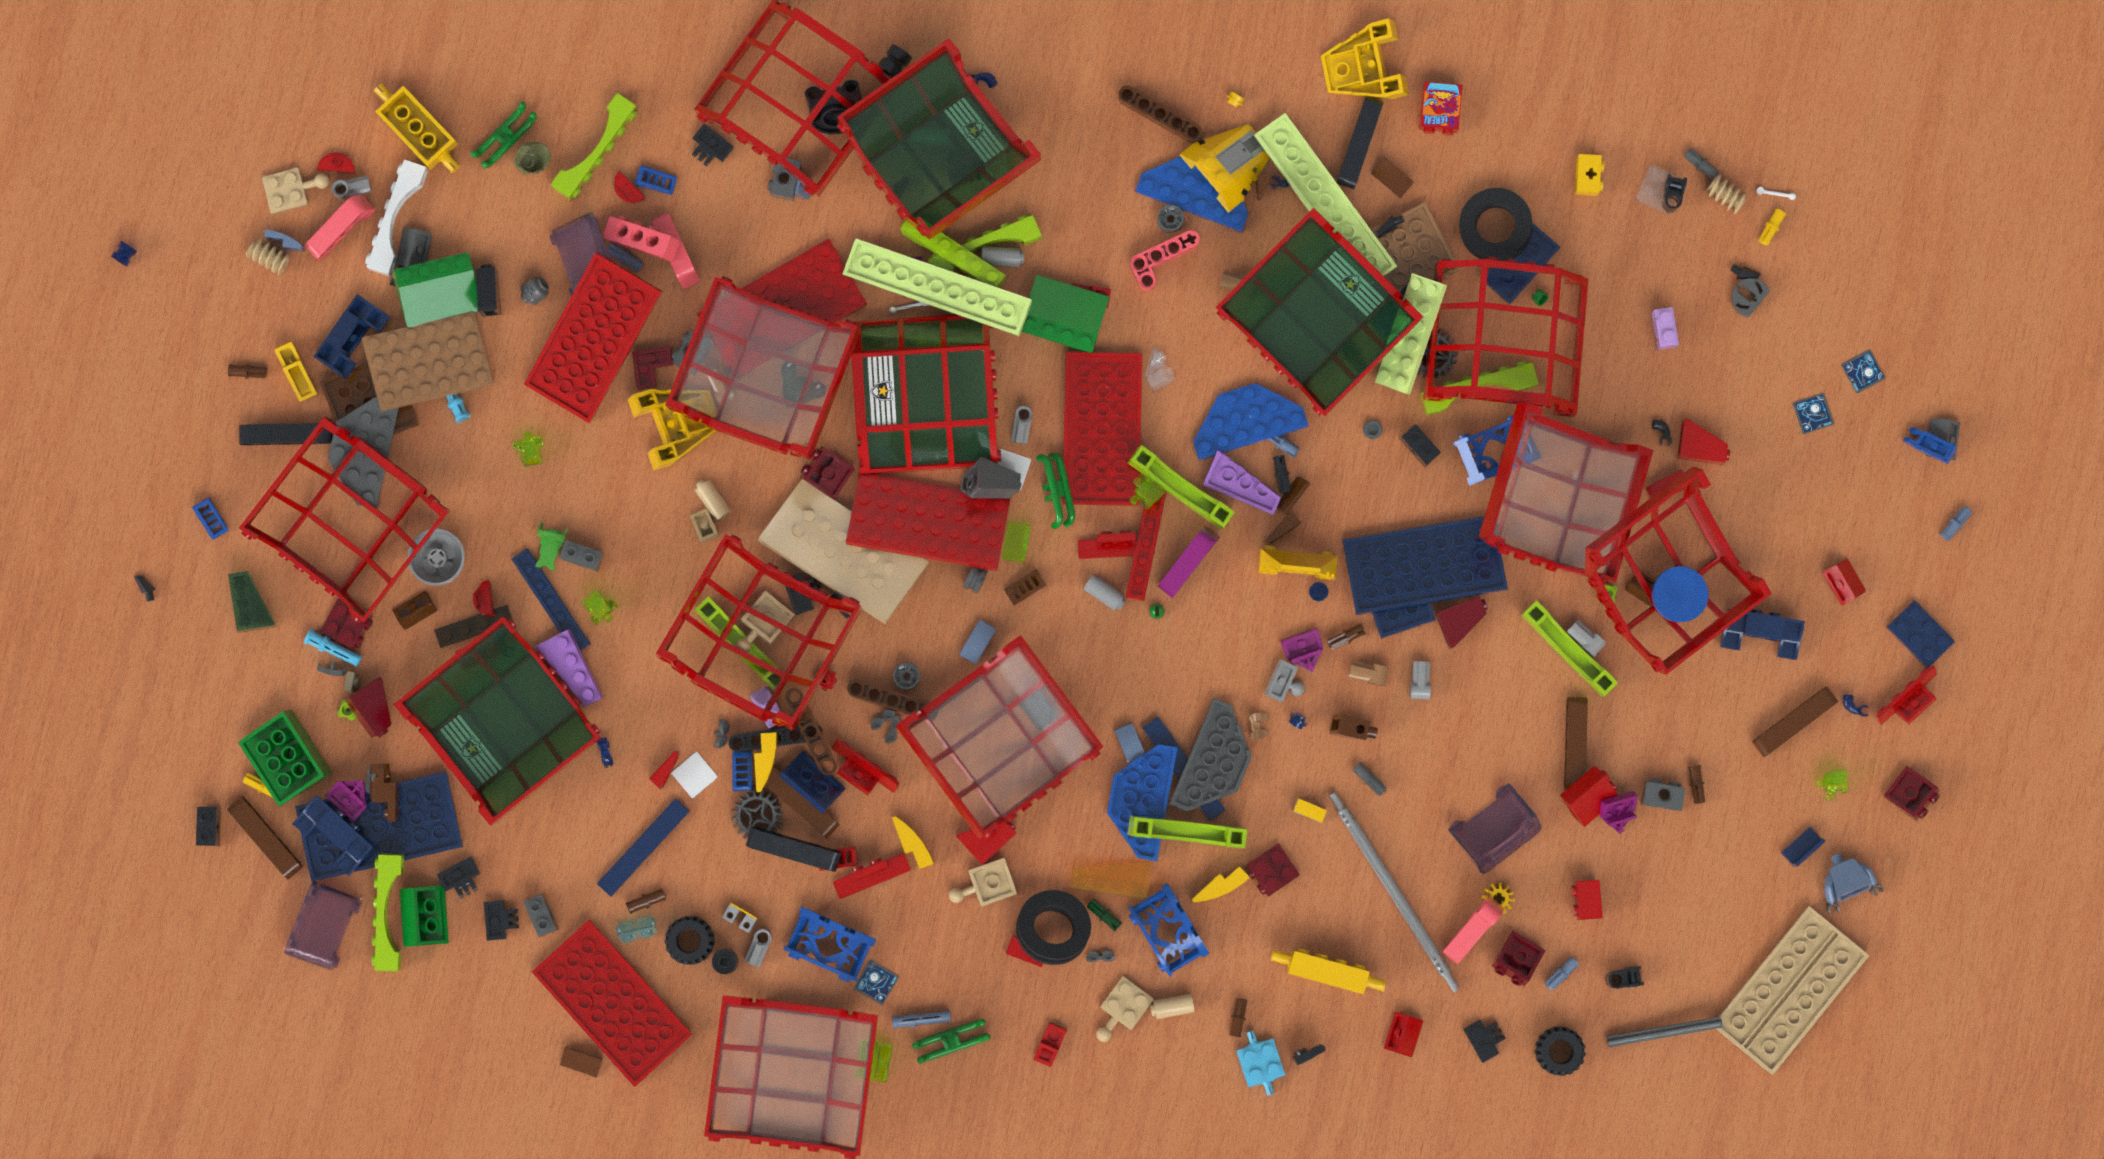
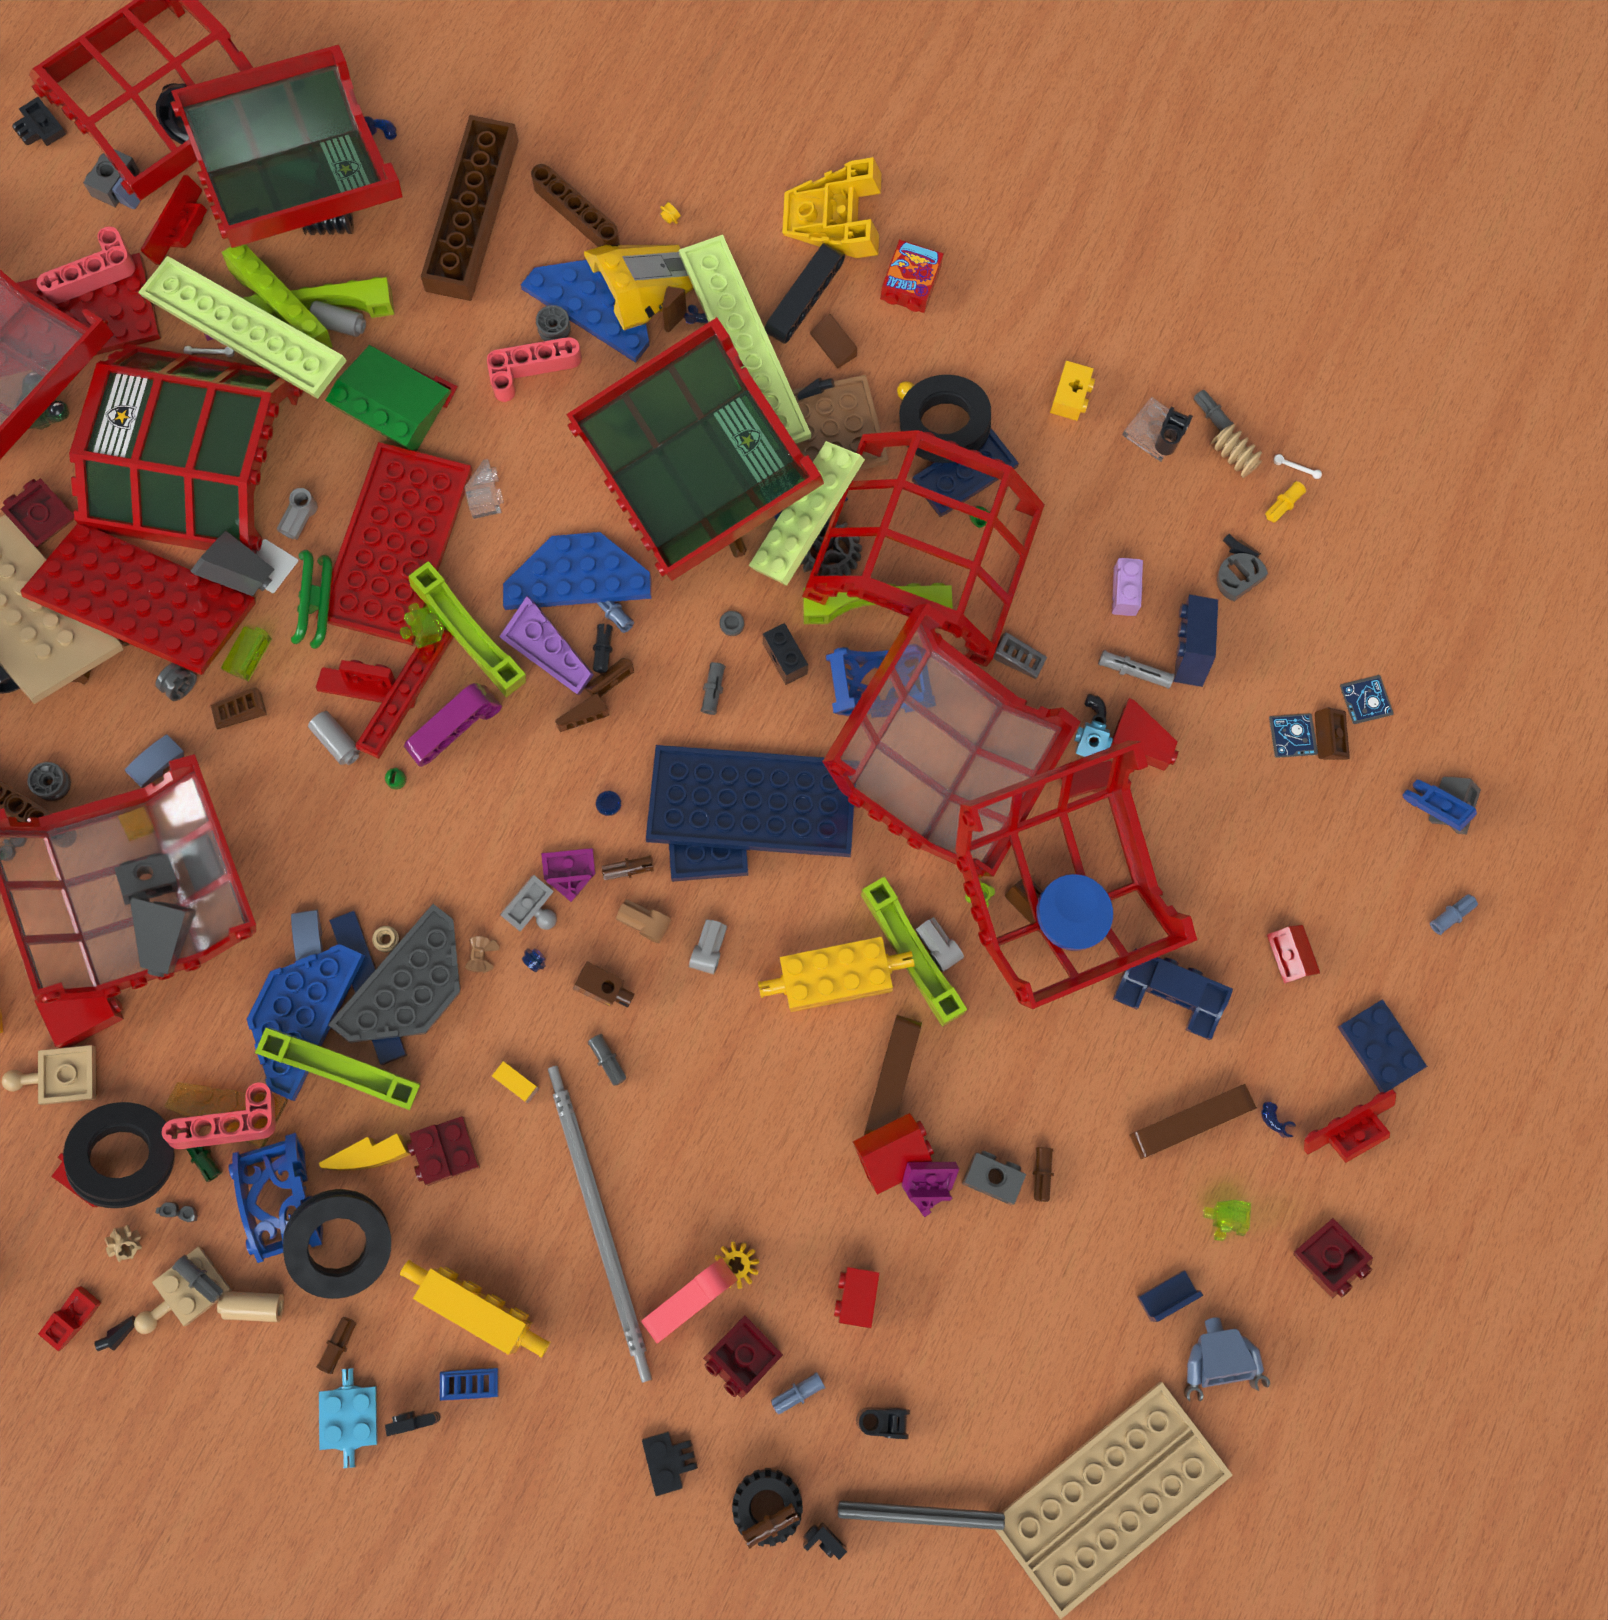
camera: 10 degrees right, 10 degrees down
(798, 268) = (91, 271): none -> coral beam
(852, 205) = (176, 222): none -> red bracket
(984, 692) = (136, 824): none -> clear yellow plate
(1002, 740) = (159, 884): none -> dark grey brick
(1037, 767) = (160, 933): none -> dark grey slope
(1072, 986) = (123, 1243): none -> tan gear
(1078, 136) = (469, 208): none -> reddish brown brick
(1085, 1047) = (115, 1335): none -> black bar
(1115, 889) = (220, 1122): none -> coral beam
(1133, 997) = (198, 1279): none -> dark grey axle
(1186, 725) = (380, 933): none -> tan plate
(1242, 964) = (347, 1280): none -> black tyre
(1275, 561) = (620, 769): yellow wedge -> none
(1319, 1020) = (457, 1395): none -> blue slope
(1372, 485) = (713, 688): none -> dark grey pin
(1403, 1034) = (557, 1427): red panel -> none
(1458, 205) = (903, 388): none -> yellow hinge
(1460, 619) = (782, 880): dark red slope -> none
(1496, 830) = (757, 1171): windscreen -> none
(1518, 678) = (836, 974): none -> yellow brick
(1567, 1060) = (770, 1525): none -> reddish brown pin
(1585, 406) = (1014, 662): none -> flat silver slope
(1607, 1064) = (830, 1543): none -> black bracket
(1662, 389) = (1136, 669): none -> light grey pin
(1665, 457) = (1083, 735): none -> medium azure brick
(1725, 358) = (1196, 640): none -> dark blue wedge
(1842, 406) = (1332, 734): none -> reddish brown slope

